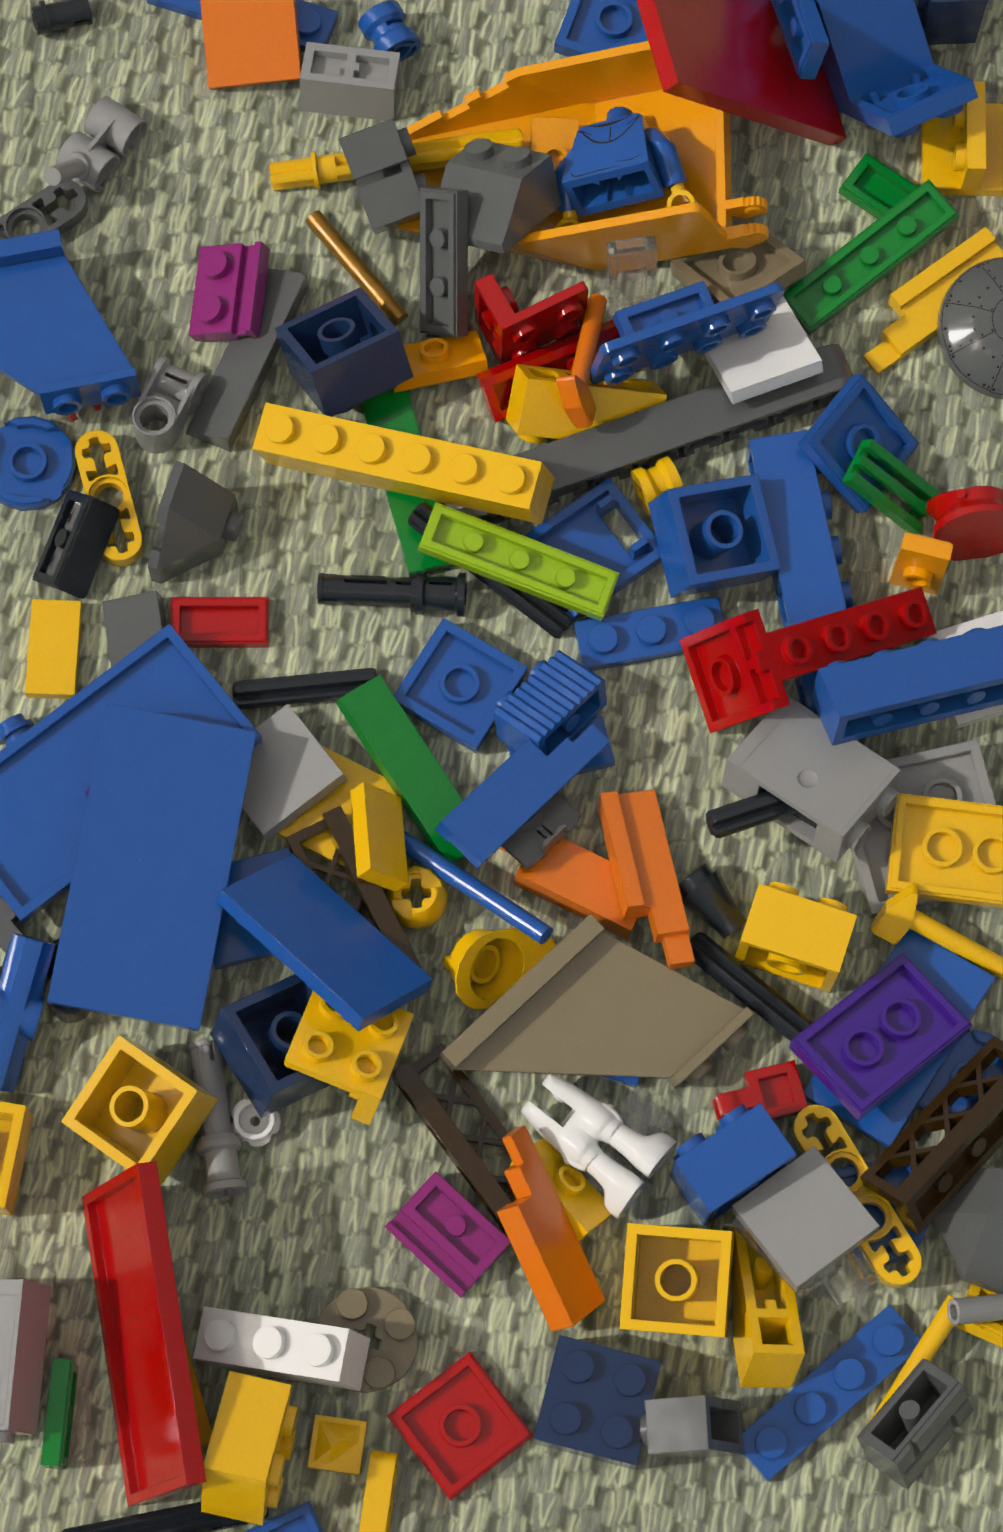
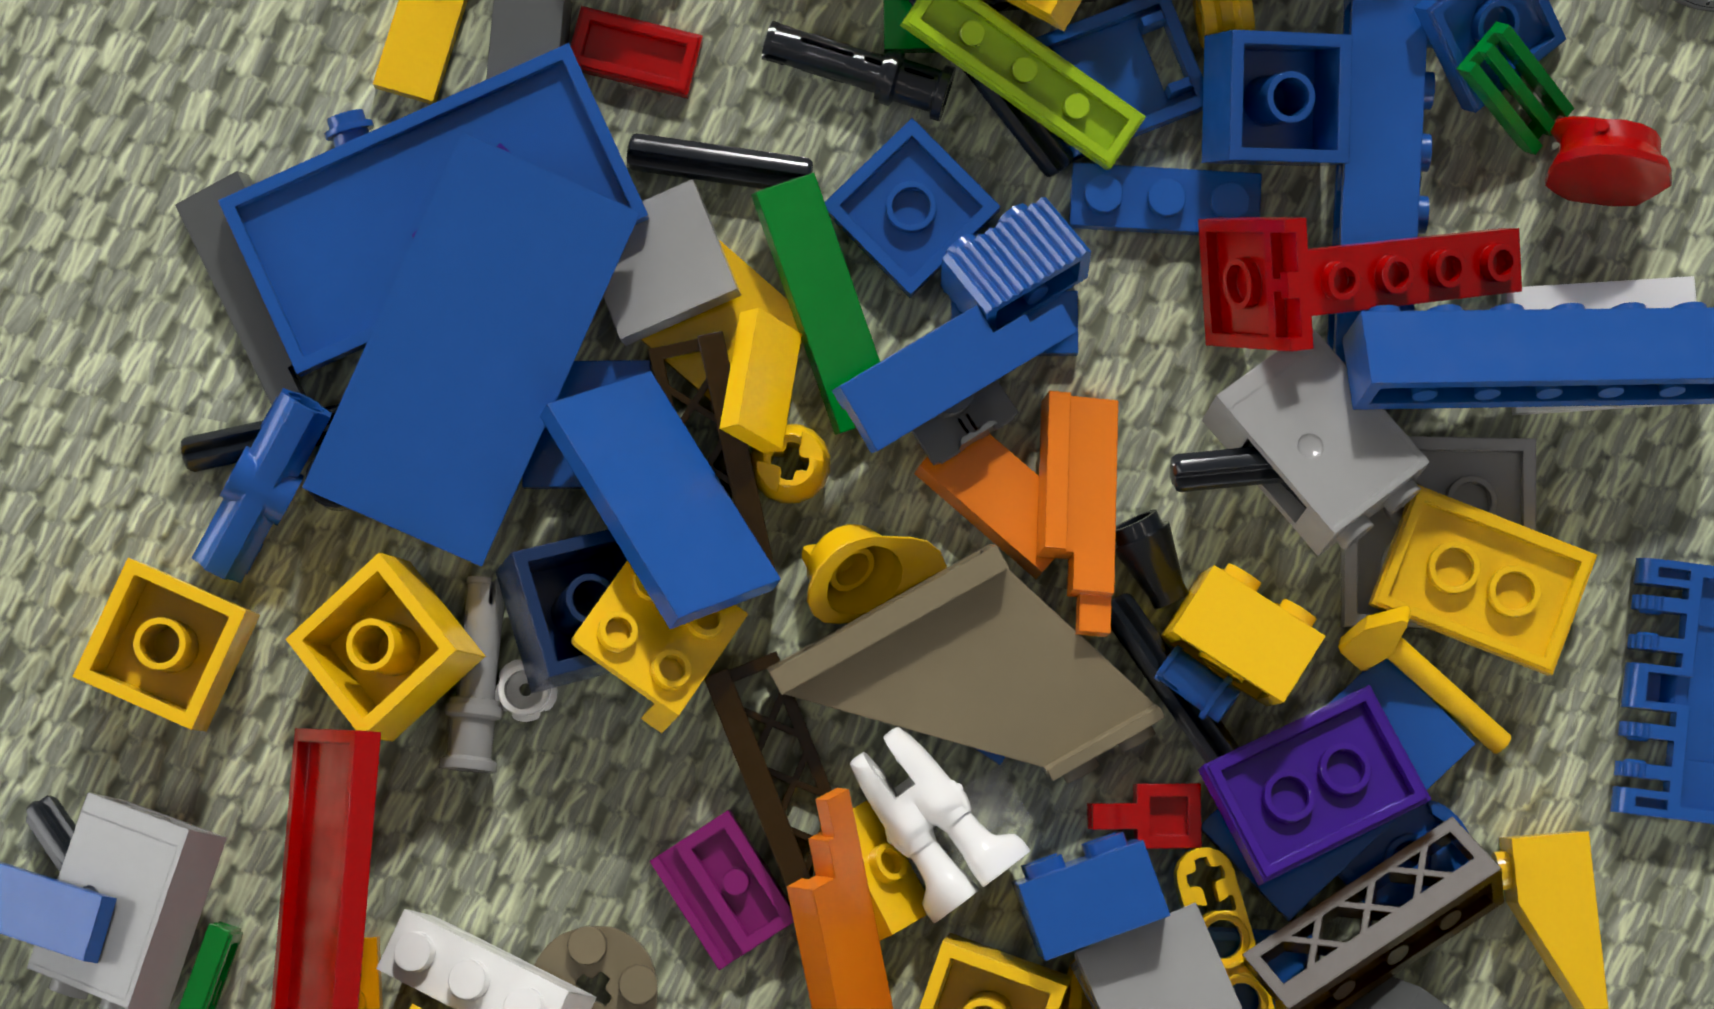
camera: 10 degrees right, 10 degrees up
(477, 890) = (865, 476): blue bar -> none
(771, 982) = (1197, 684): none -> blue pin
(921, 563) = (1527, 199): light orange plate -> none

